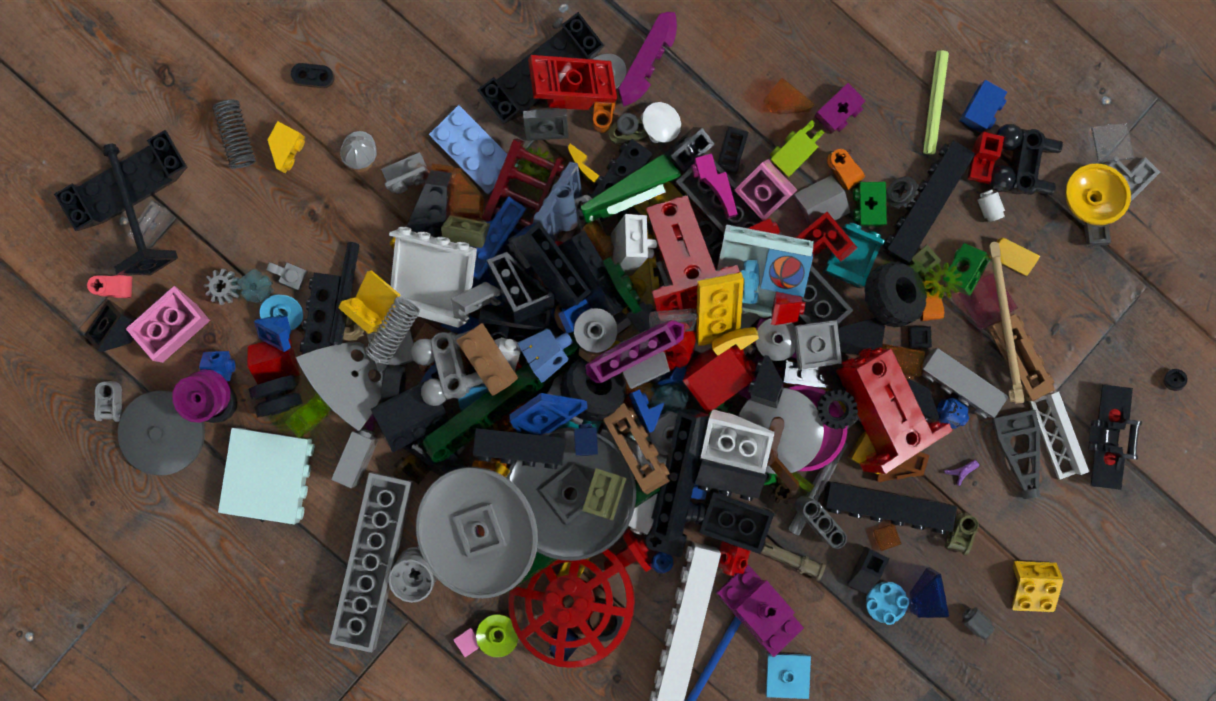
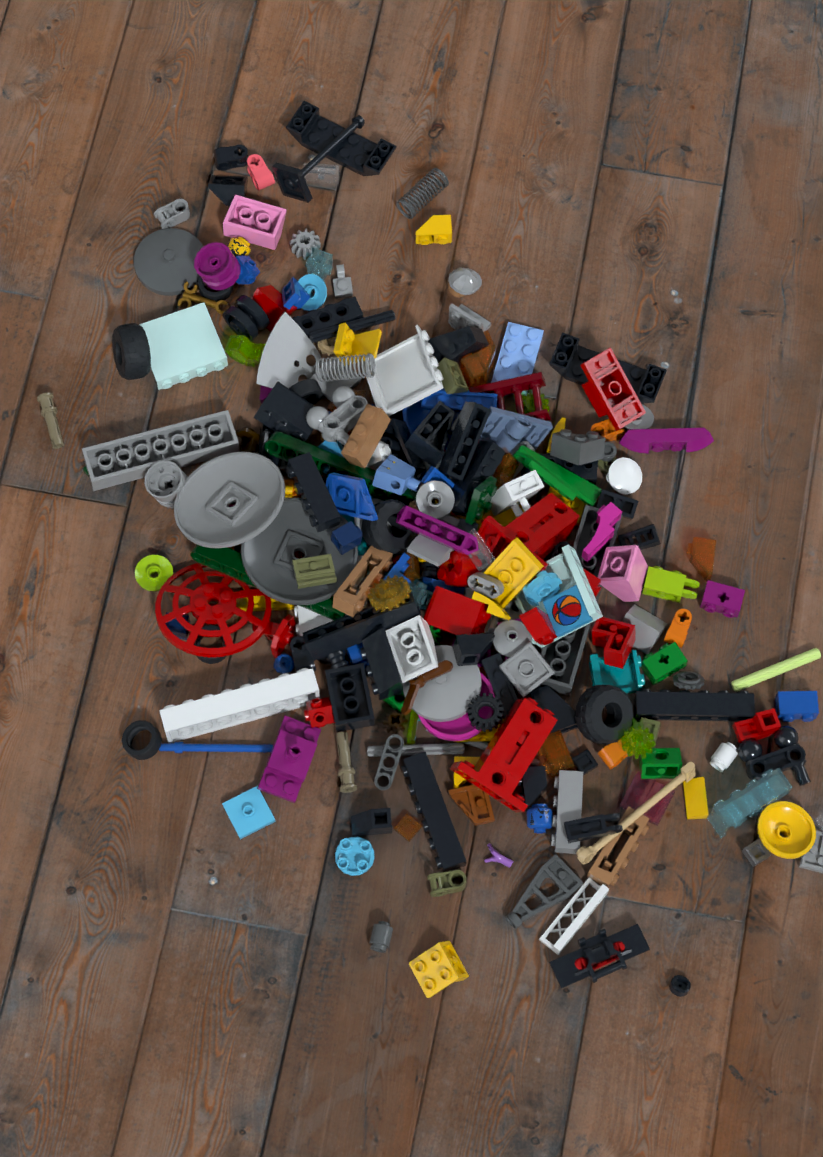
camera: 60 degrees right, 20 degrees down
(75, 307) = (230, 157): none -> black piece
(188, 358) = (239, 246): none -> yellow head
(214, 437) = (189, 295): none -> pearl gold bar
(247, 533) = (131, 351): none -> black tyre
(264, 645) = (49, 413): none -> dark tan pin
(314, 74) = (500, 223): black plate -> none
(355, 458) = (234, 396): light grey brick -> none
(467, 642) = (134, 555): bright pink tile -> none
(474, 299) = (403, 409): light grey hinge -> none
(546, 124) = (568, 394): dark grey plate -> none
(614, 152) = (577, 447): none -> dark grey slope
(672, 435) = (389, 593): none -> clear yellow gear
(712, 333) = (485, 585): none -> light grey beam
(928, 596) = (380, 880): clear blue slope -> none
(999, 376) = (591, 827): none -> black hinge
(1056, 212) = (748, 801): none -> clear light blue wedge

